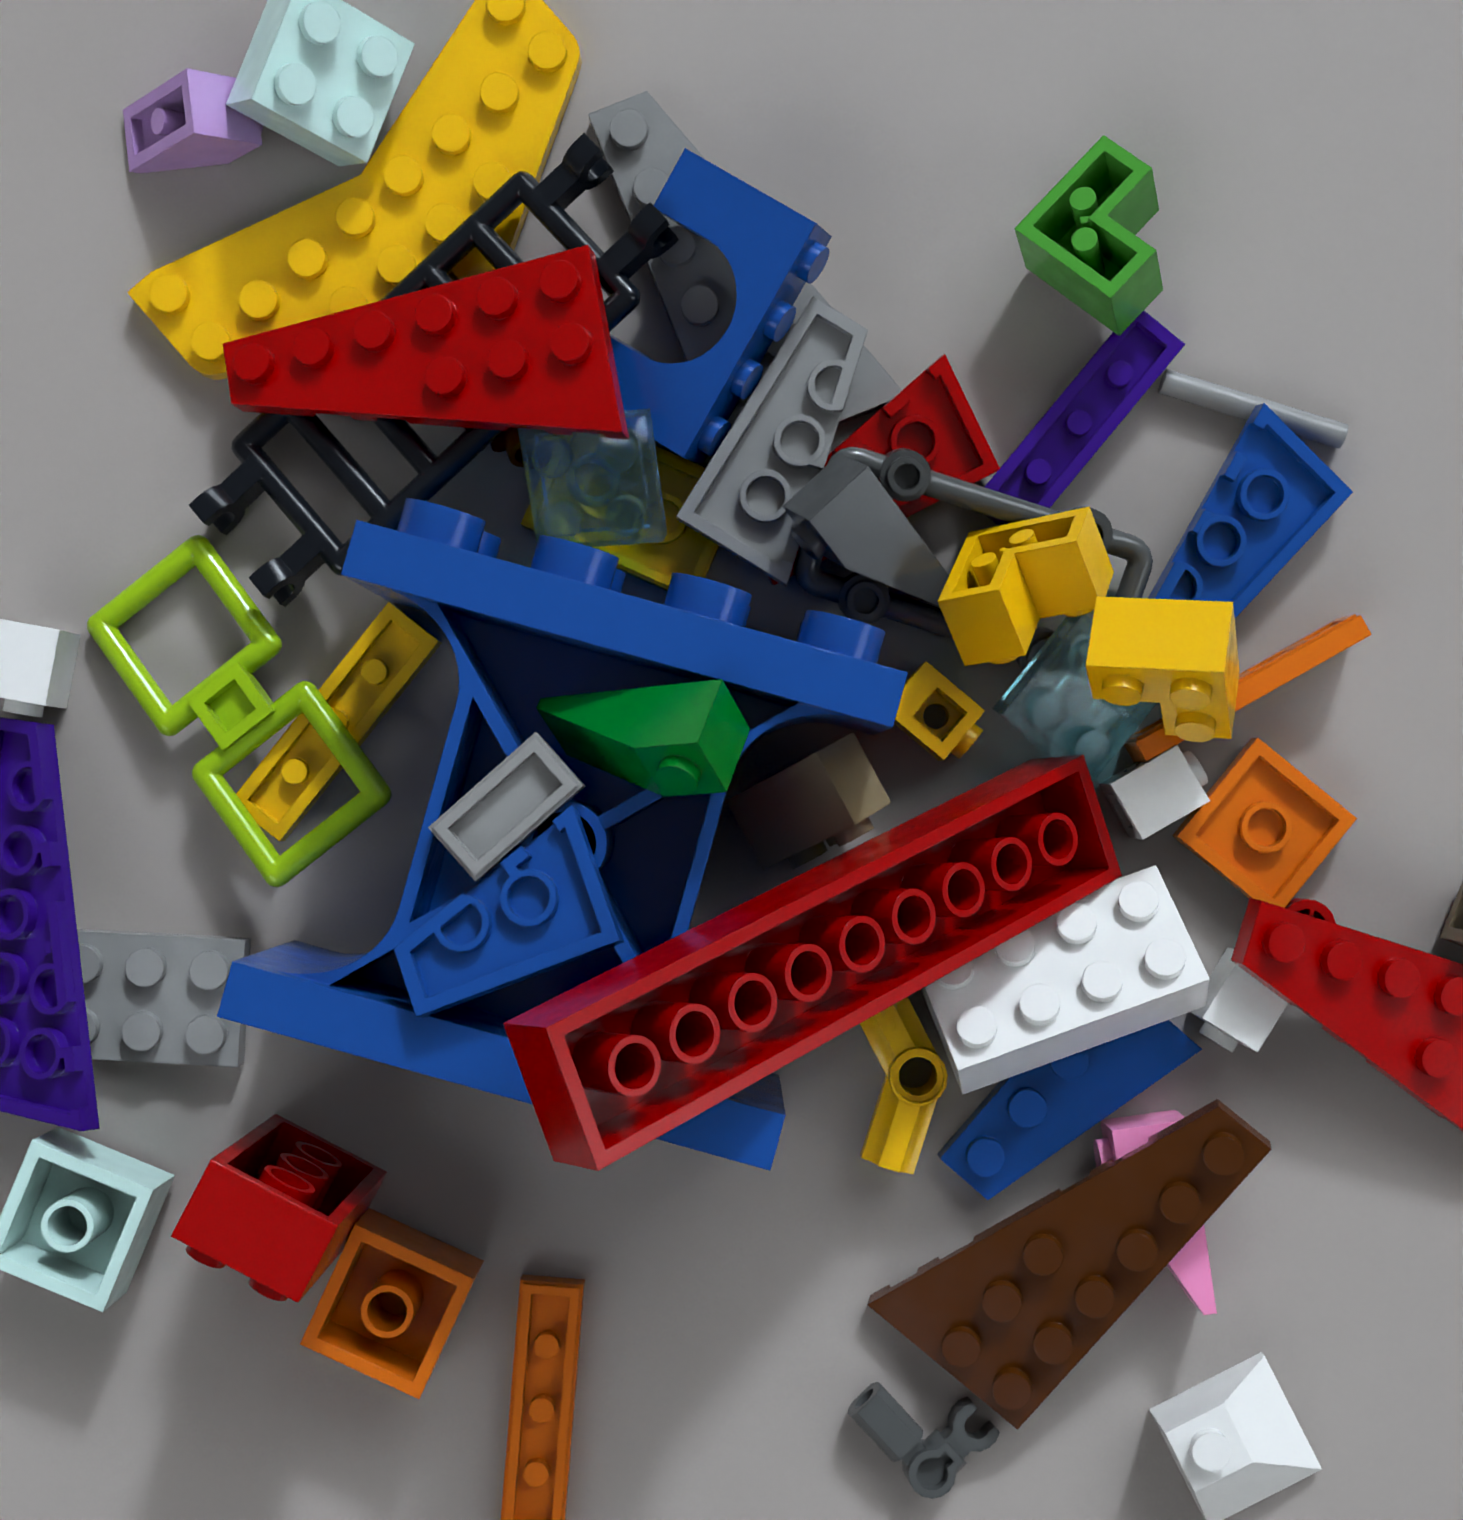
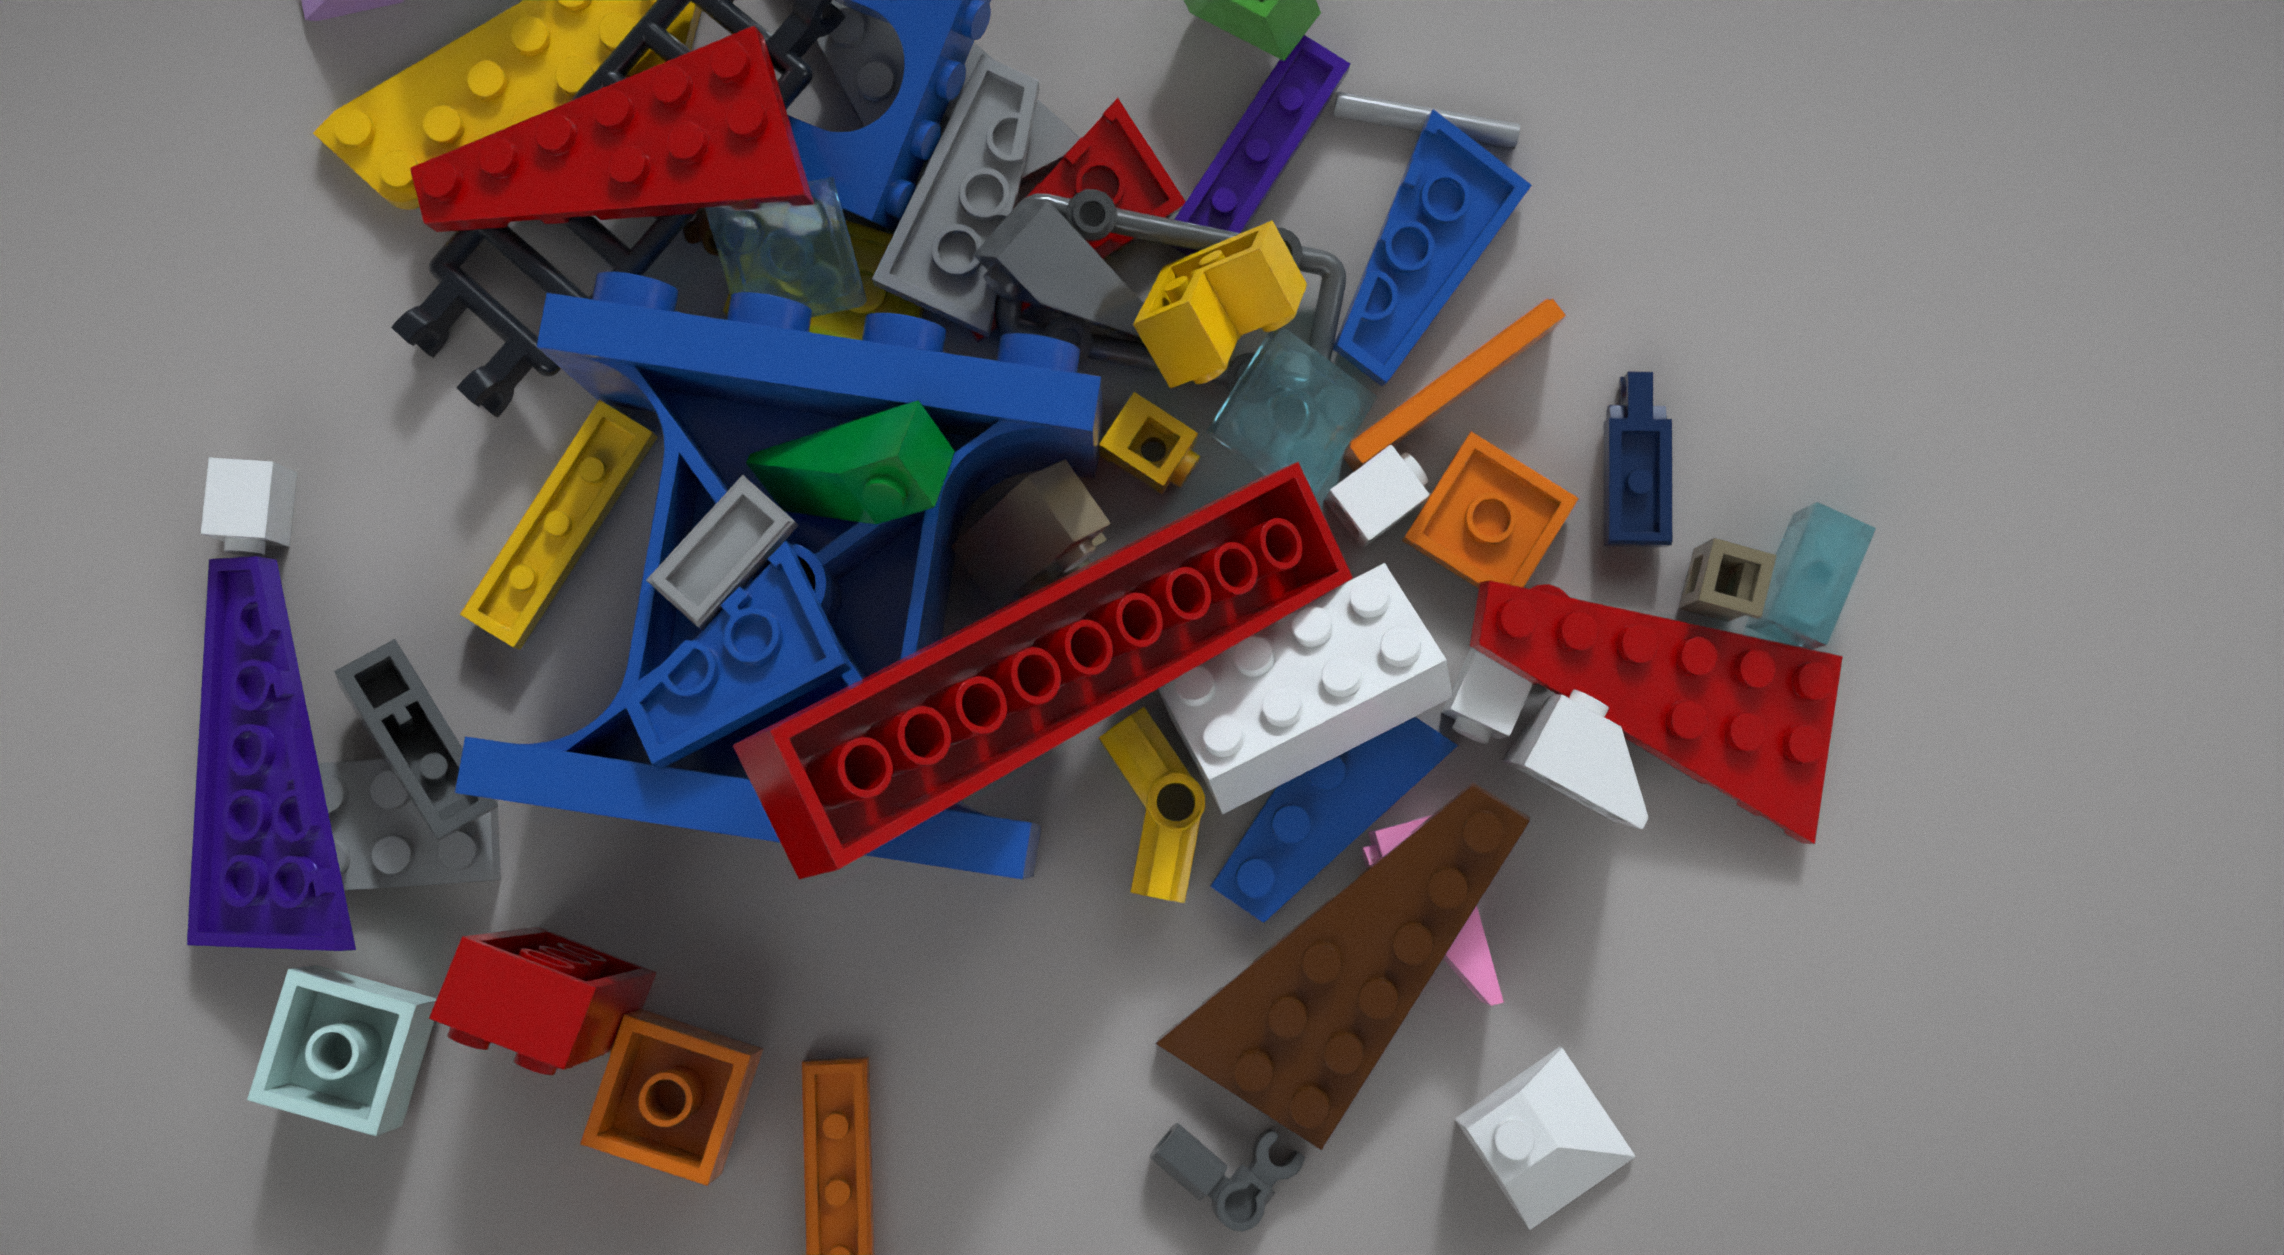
camera: 15 degrees left, 5 degrees down
(173, 923) = (411, 736): none -> dark grey slope
(238, 711) = (459, 523): lime bar -> none
(1168, 656) = (1370, 349): yellow brick -> none
(1327, 1084) = (1581, 757): none -> white slope
(1419, 791) = (1637, 467): none -> dark blue hinge

